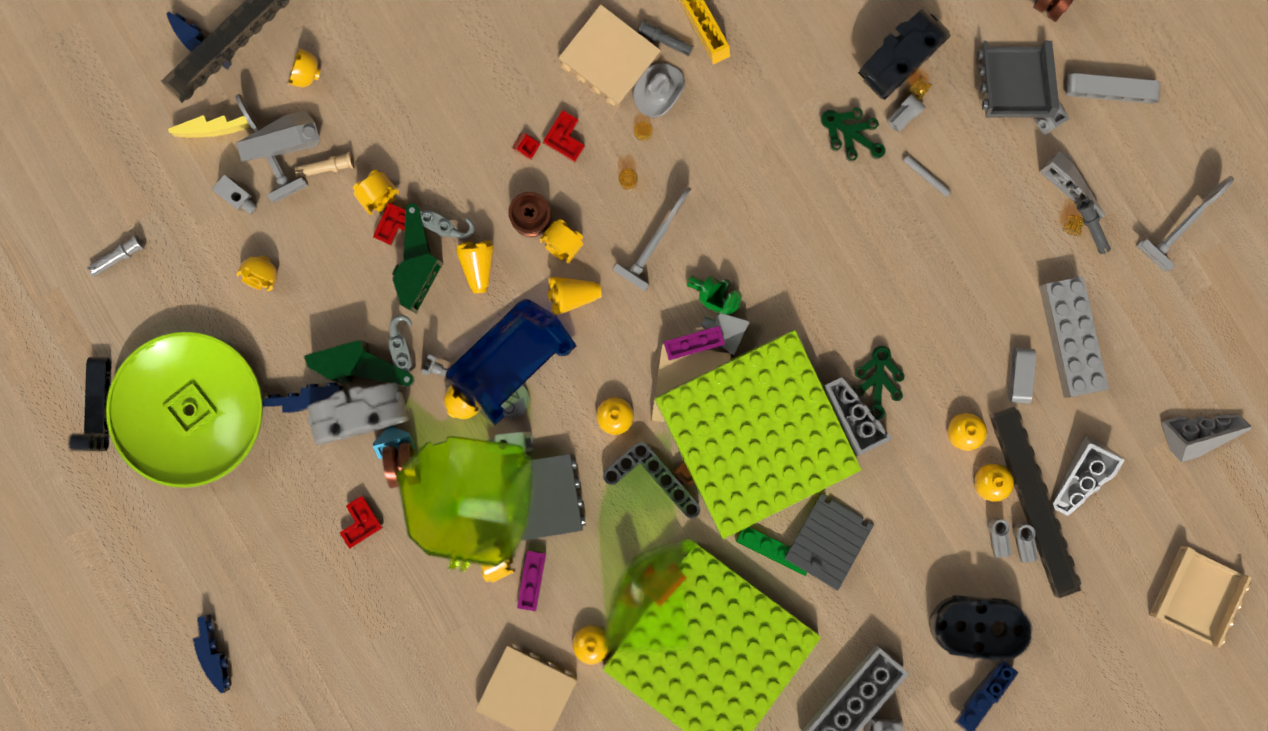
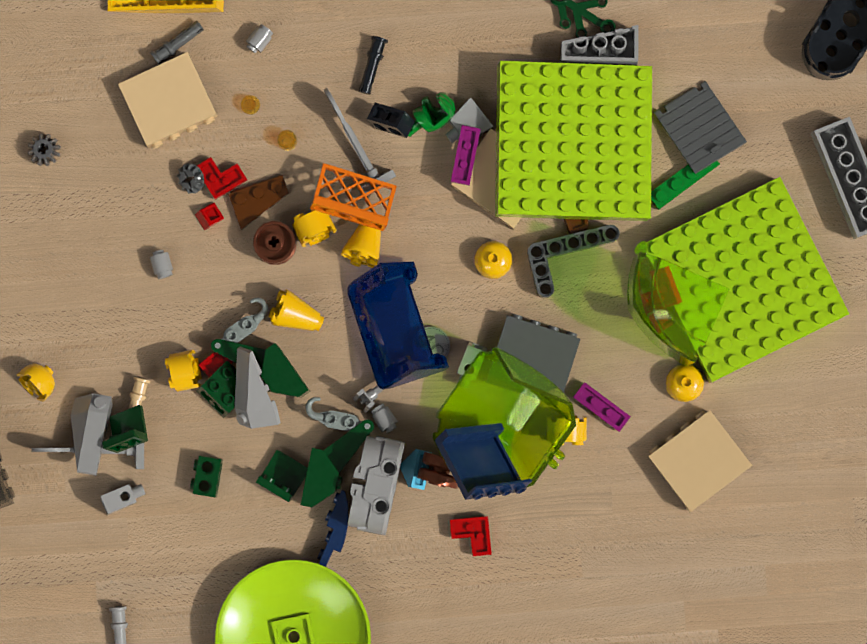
camera: 60 degrees left, 0 degrees up
(204, 127) = (43, 498): light yellow slope -> none
(258, 272) = (201, 512): yellow cylinder -> none
(294, 265) = (211, 477): none -> dark green brick
(296, 169) = (127, 430): none -> dark green bracket
(325, 327) = (283, 476): none -> dark green bracket
(379, 237) = (220, 389): none -> dark green bracket
(381, 261) = (251, 397): none -> light grey wedge
(419, 497) = (480, 461): none -> dark blue panel
(423, 391) = (384, 418): none -> light grey brick
(458, 405) = (412, 392): yellow cylinder -> none
(461, 125) = (161, 264): none -> light grey brick
(547, 118) = (196, 183): none -> dark grey gear
(562, 179) = (256, 199): none -> reddish brown wing
(589, 267) = (349, 212): none -> orange fence
(658, 89) = (220, 72): light grey hat -> none
(692, 260) = (390, 120): none -> black brick
(705, 108) = (259, 39): none -> light grey brick
(742, 218) = (374, 57): none -> black pin

